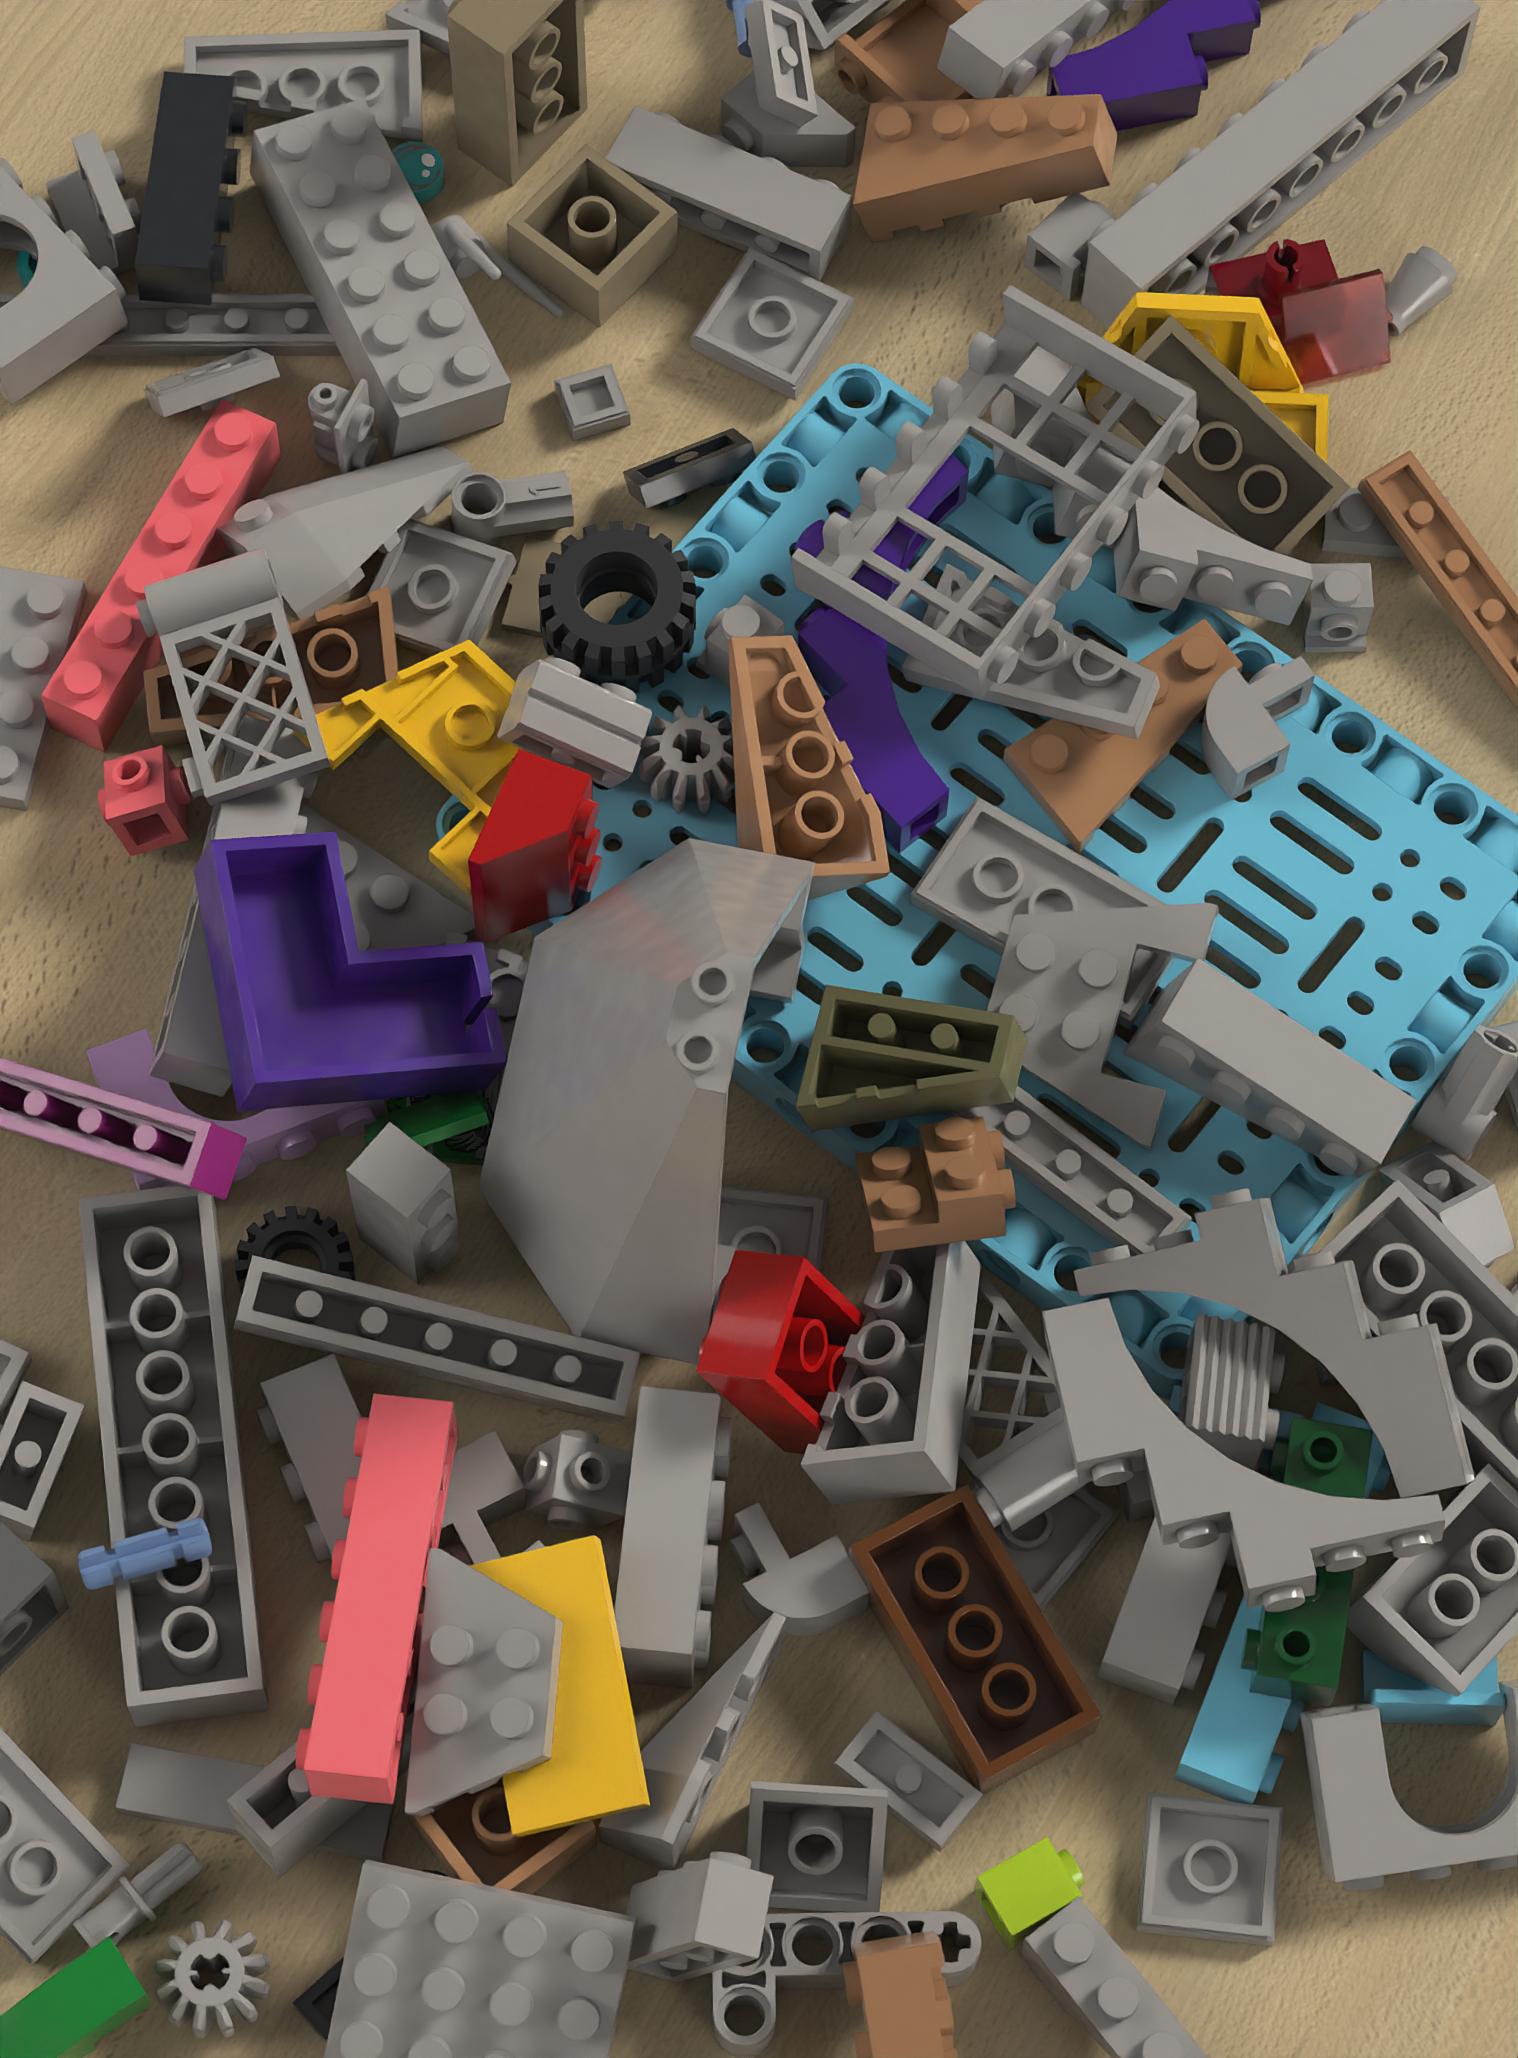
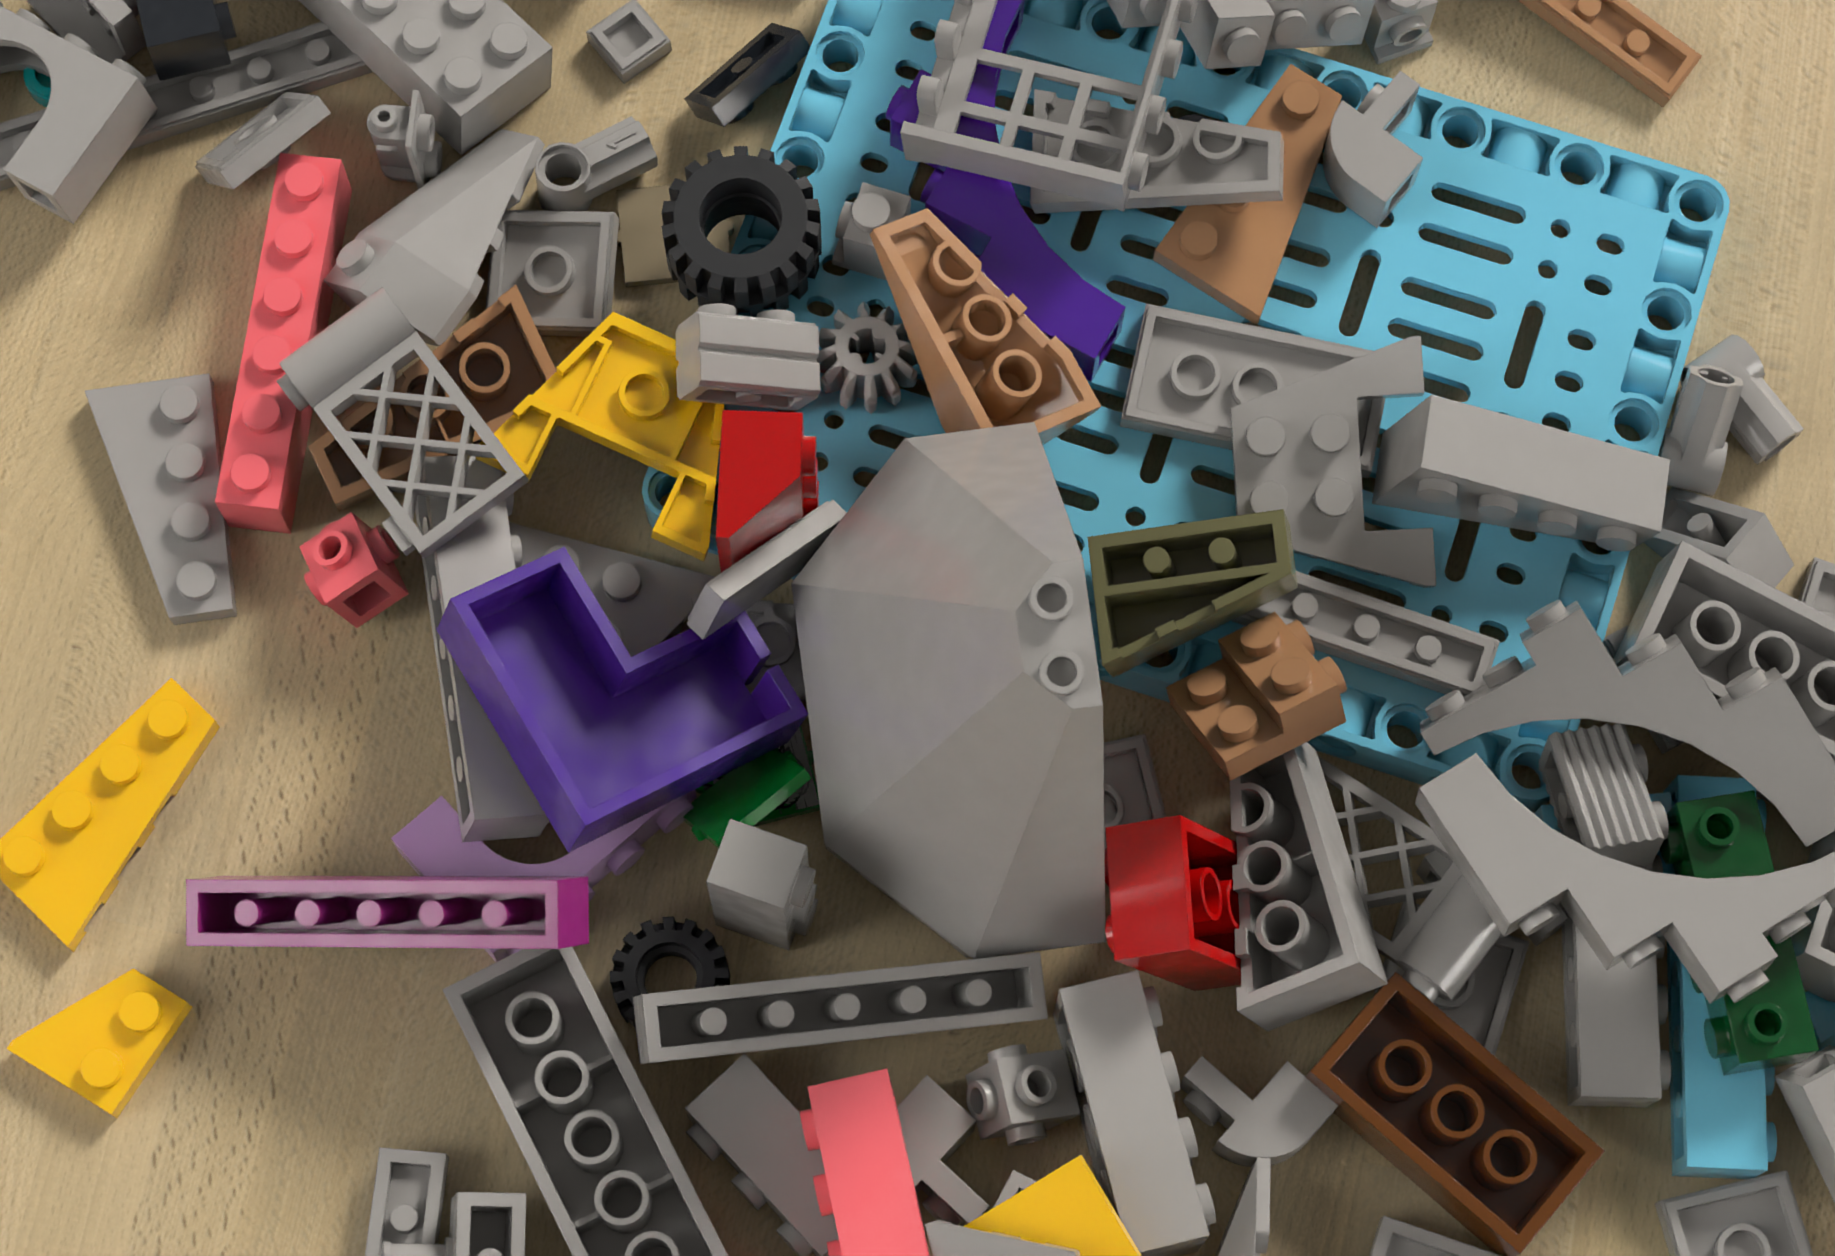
camera: 20 degrees left, 5 degrees up
(508, 916) = (762, 570): none -> light grey tile

